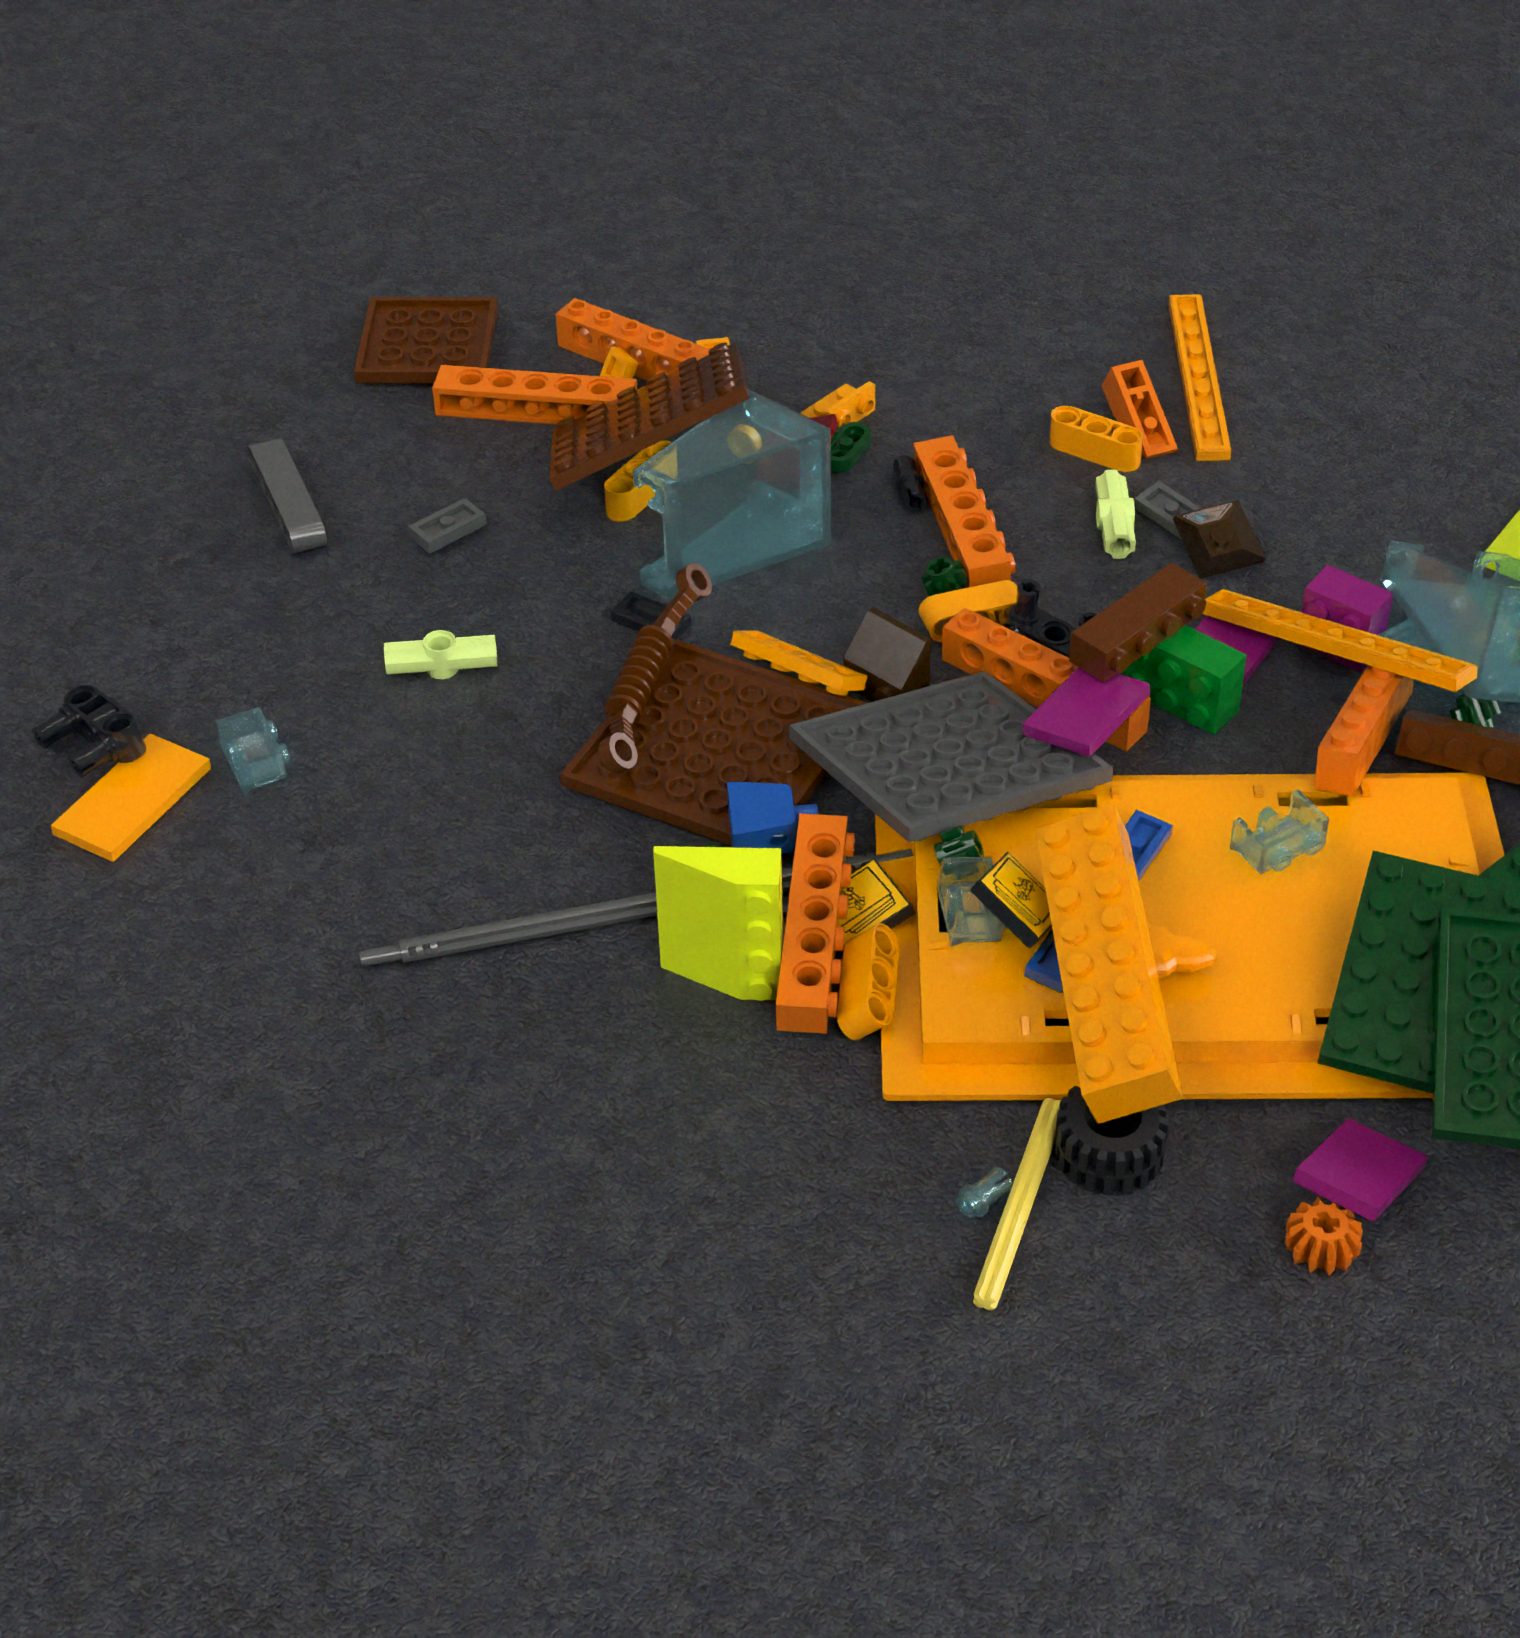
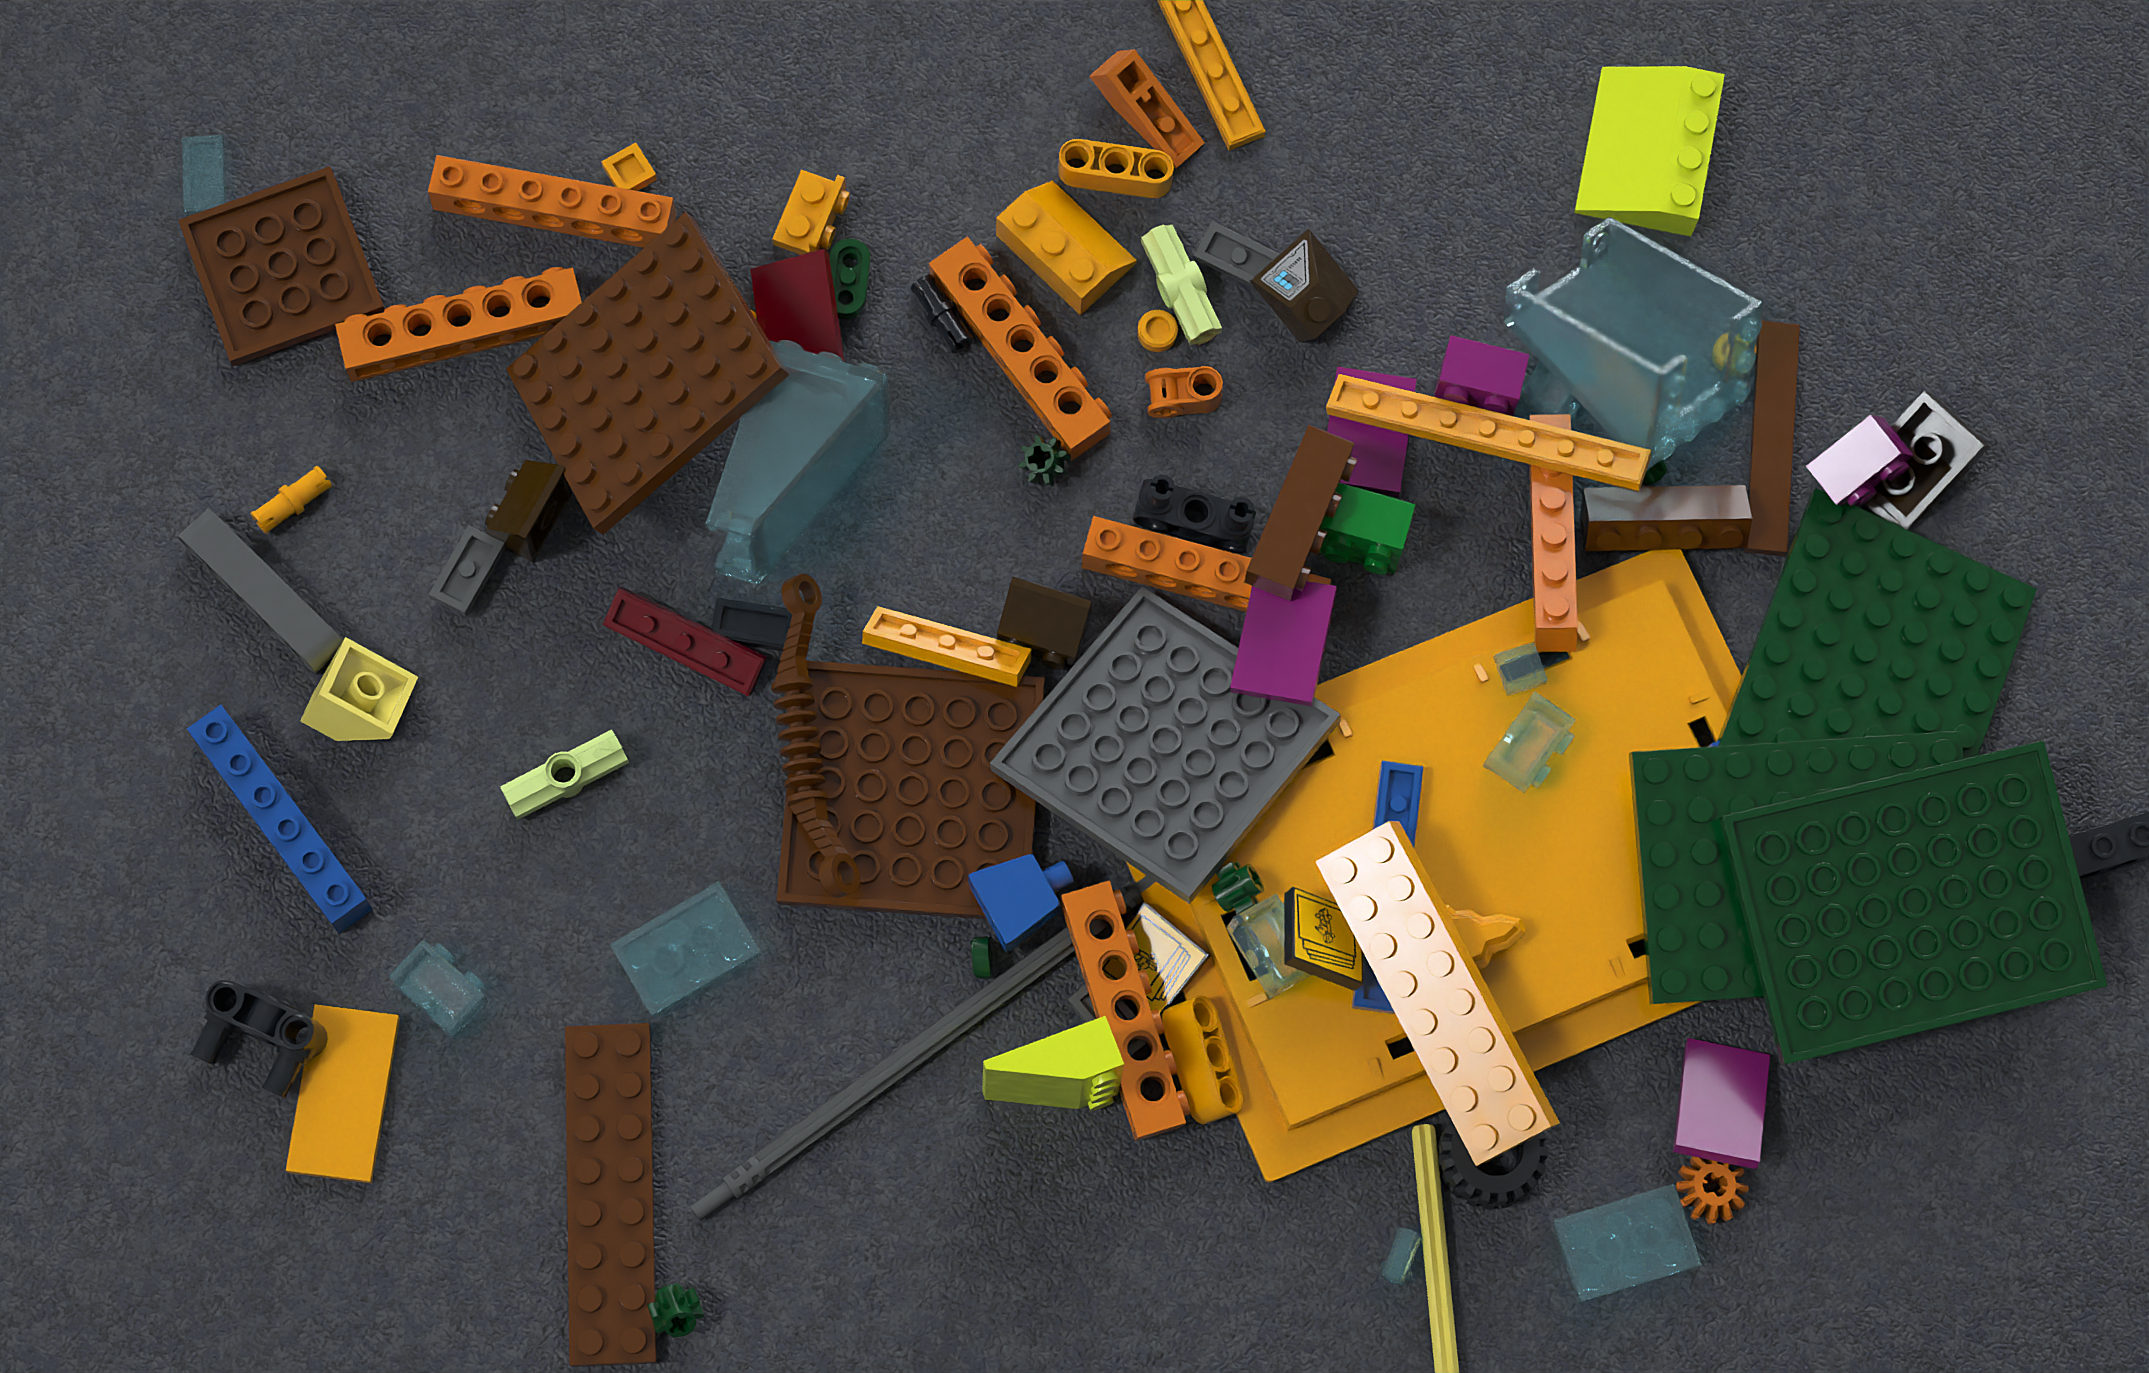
camera: 30 degrees left, 30 degrees up
(204, 619) = (280, 819): none -> blue brick
(295, 1022) = (675, 1310): none -> dark green gear
(296, 931) = (610, 1195): none -> reddish brown plate
(311, 560) = (359, 696): none -> light yellow slope
(345, 455) = (291, 499): none -> light orange pin
(410, 282) = (203, 173): none -> clear light blue tile
(466, 787) = (685, 949): none -> clear light blue plate
(519, 500) = (529, 508): none -> dark brown slope
(587, 607) = (685, 641): none -> dark red tile
(619, 364) = (535, 242): light orange plate -> none
(988, 600) = (1092, 494): light orange beam -> none
(1027, 470) = (1063, 245): none -> light orange slope
(1082, 539) = (1157, 330): none -> light orange tile
(1088, 572) = (1180, 392): none -> orange piece
(1216, 1255) = (1626, 1243): none -> clear light blue plate
(1288, 781) = (1520, 669): none -> clear light blue tile

